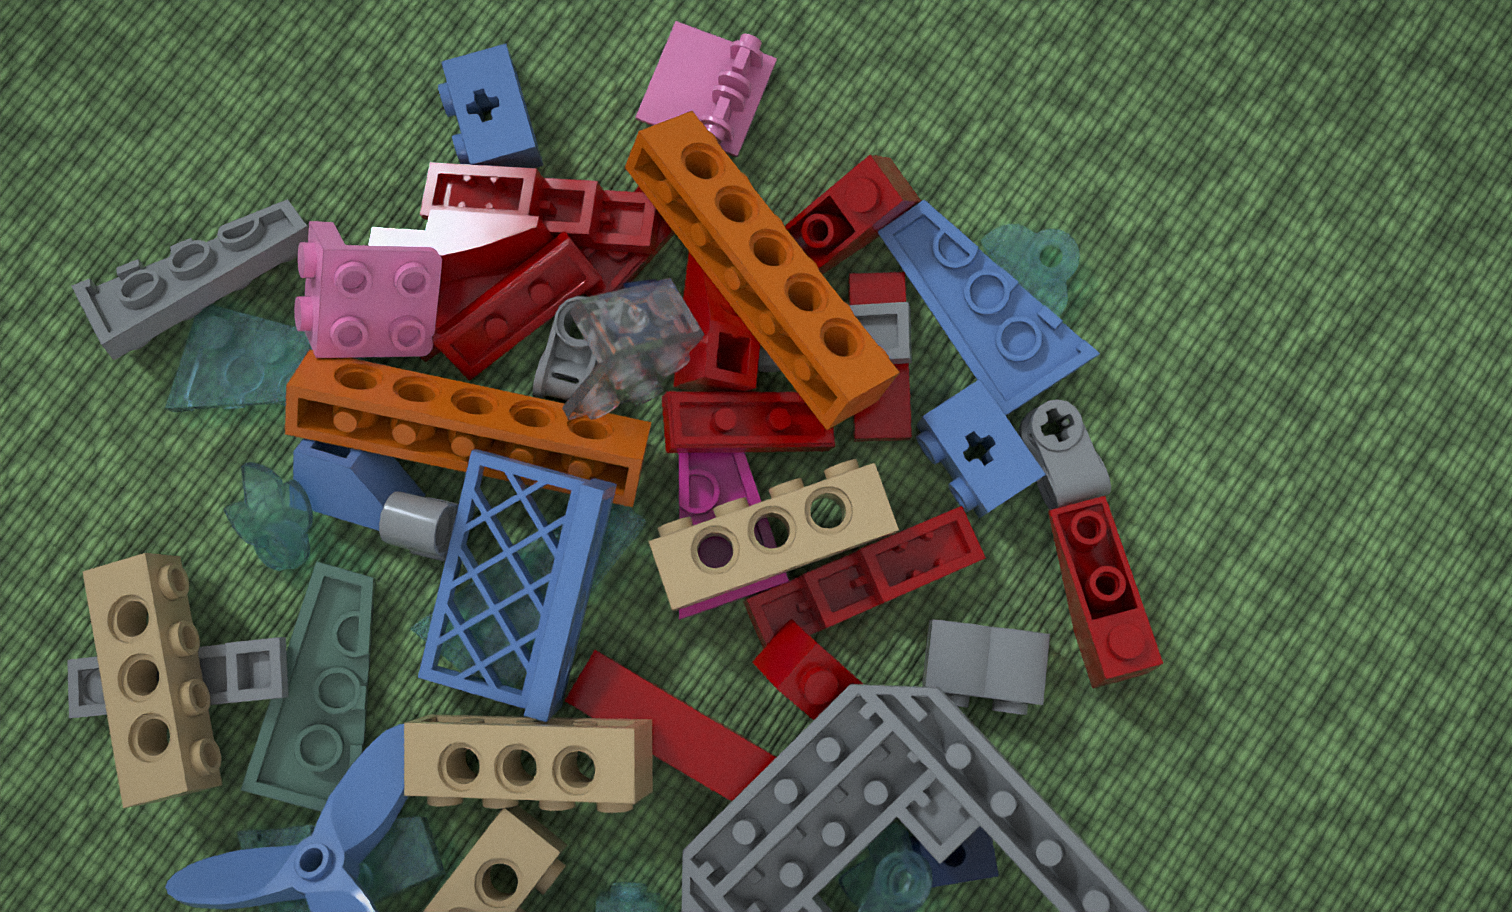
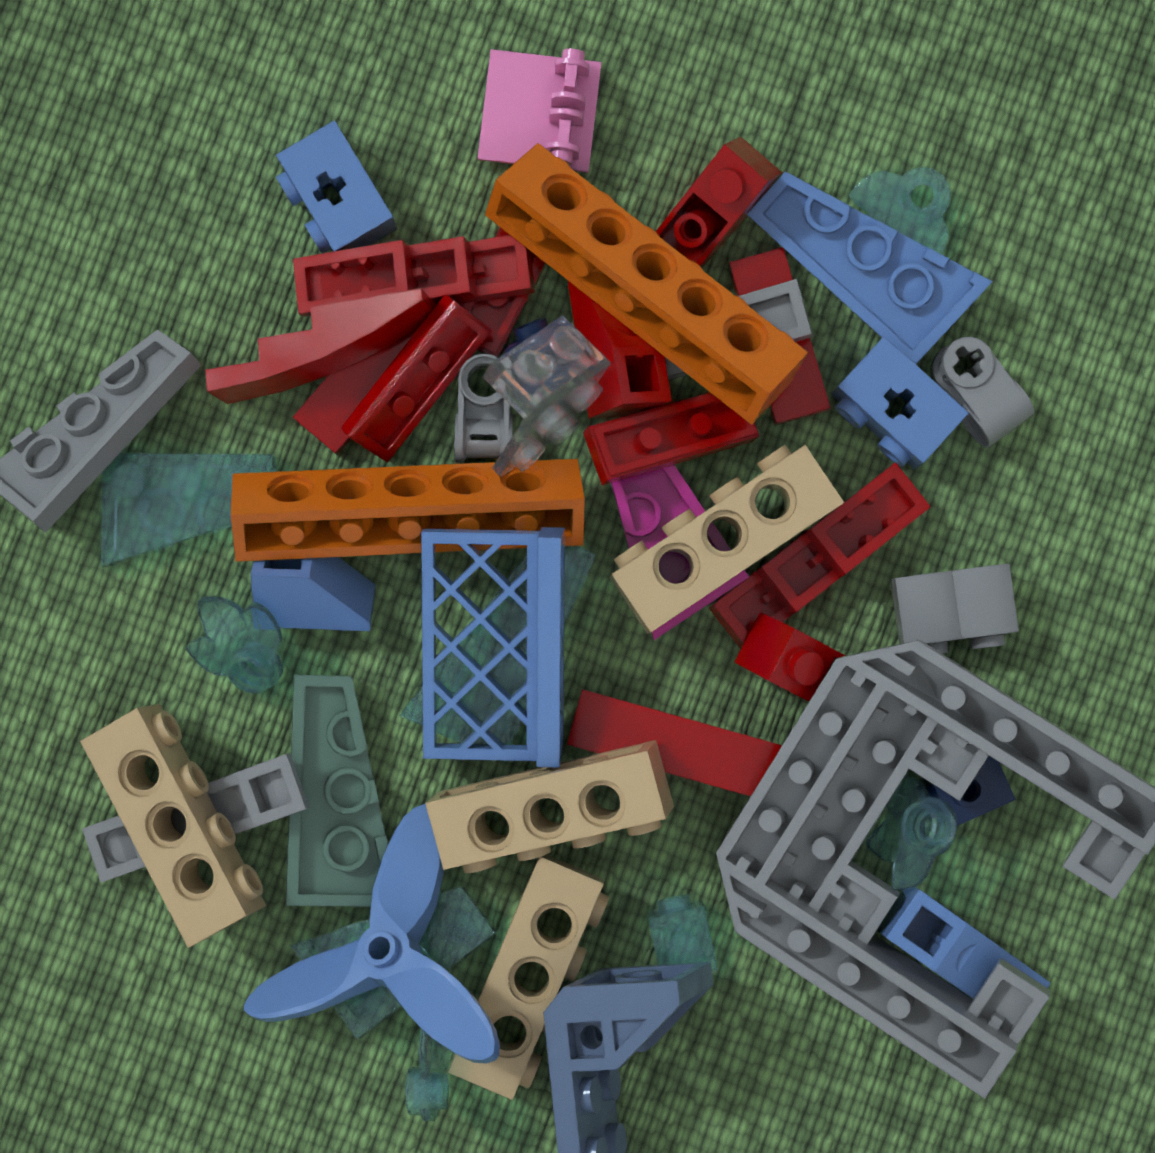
camera: 15 degrees left, 5 degrees up
(366, 296) = (272, 410): bright pink bracket -> none
(418, 524) = (389, 614): light grey piece -> none
(1102, 594) = (1049, 512): red slope -> none

